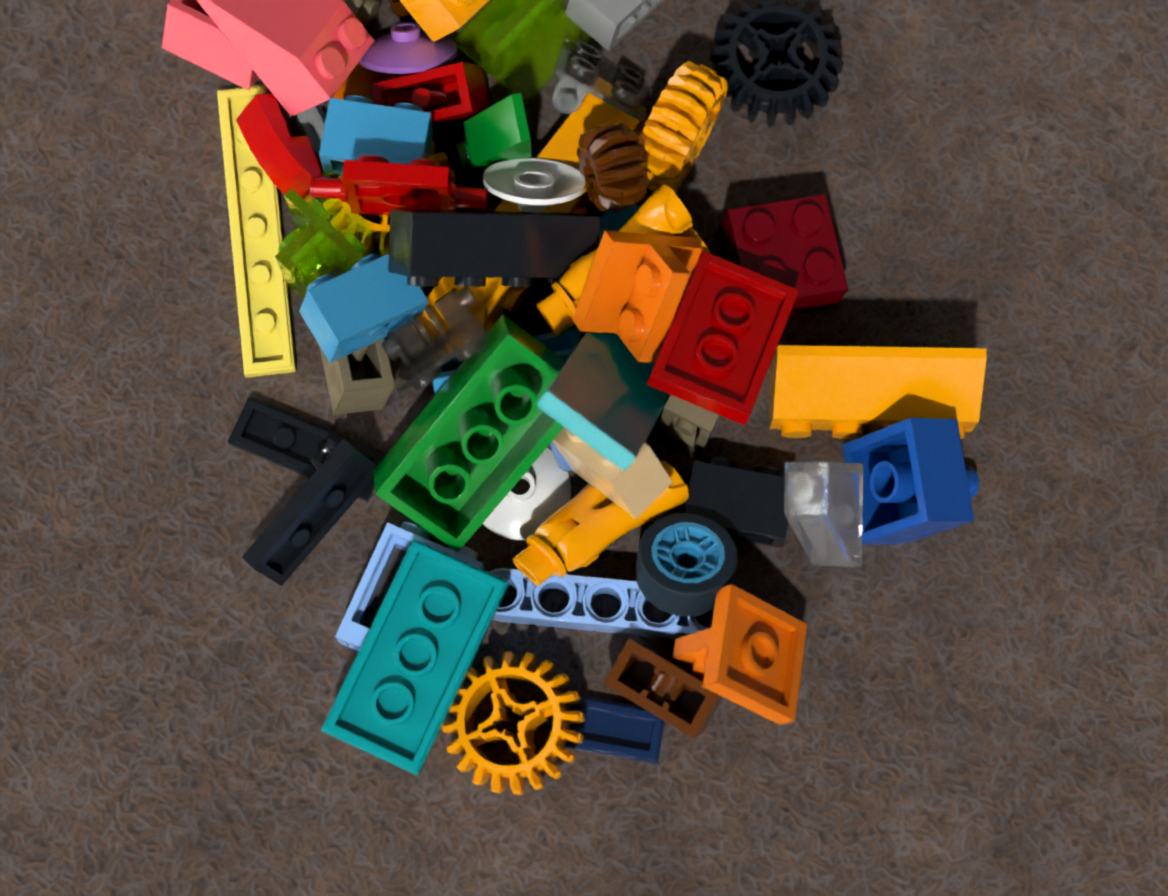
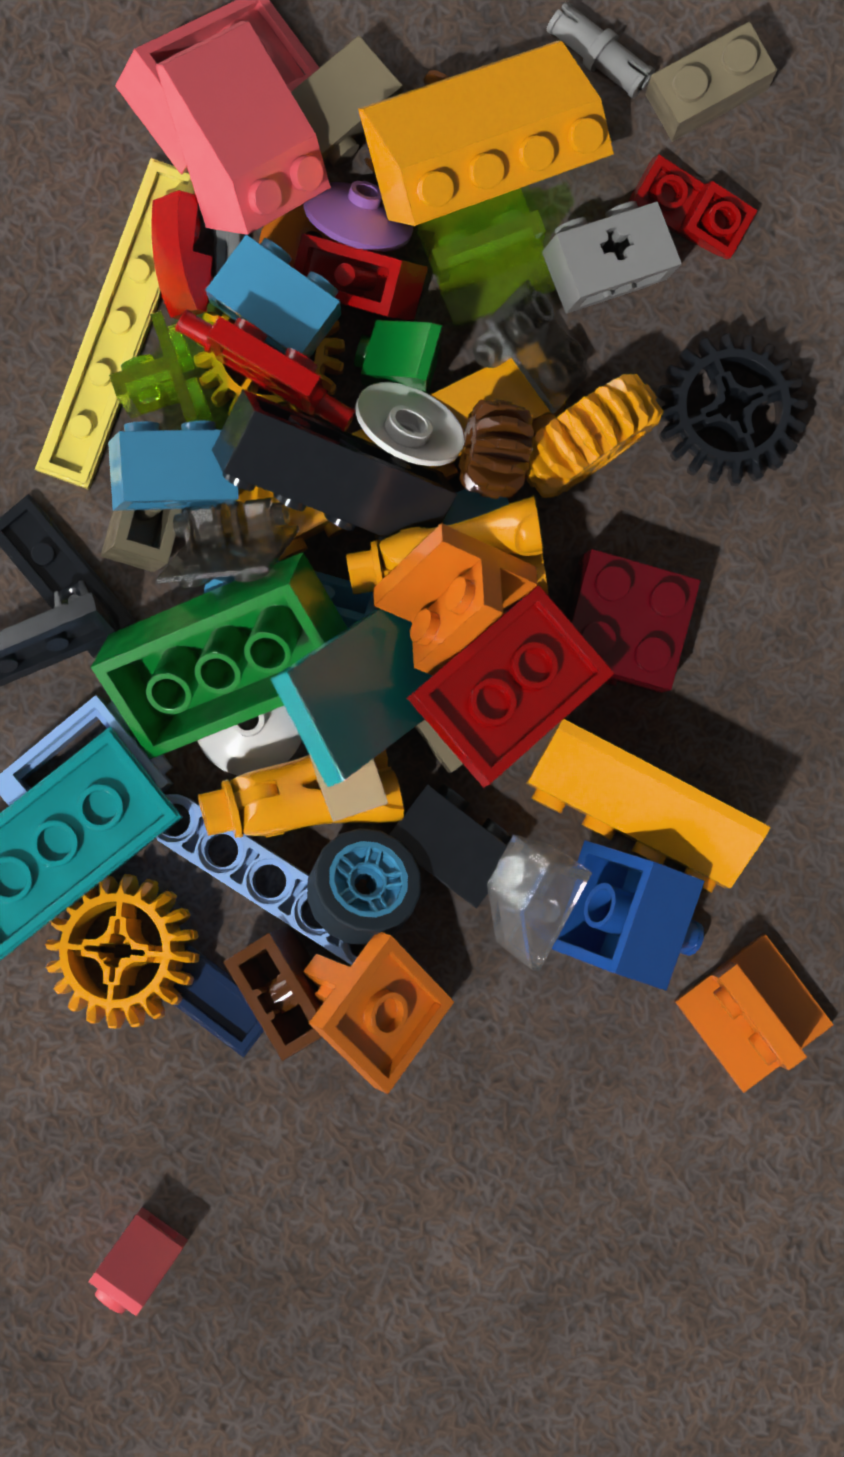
camera: 25 degrees right, 10 degrees up
(1050, 518) = (754, 1013): none -> orange bracket

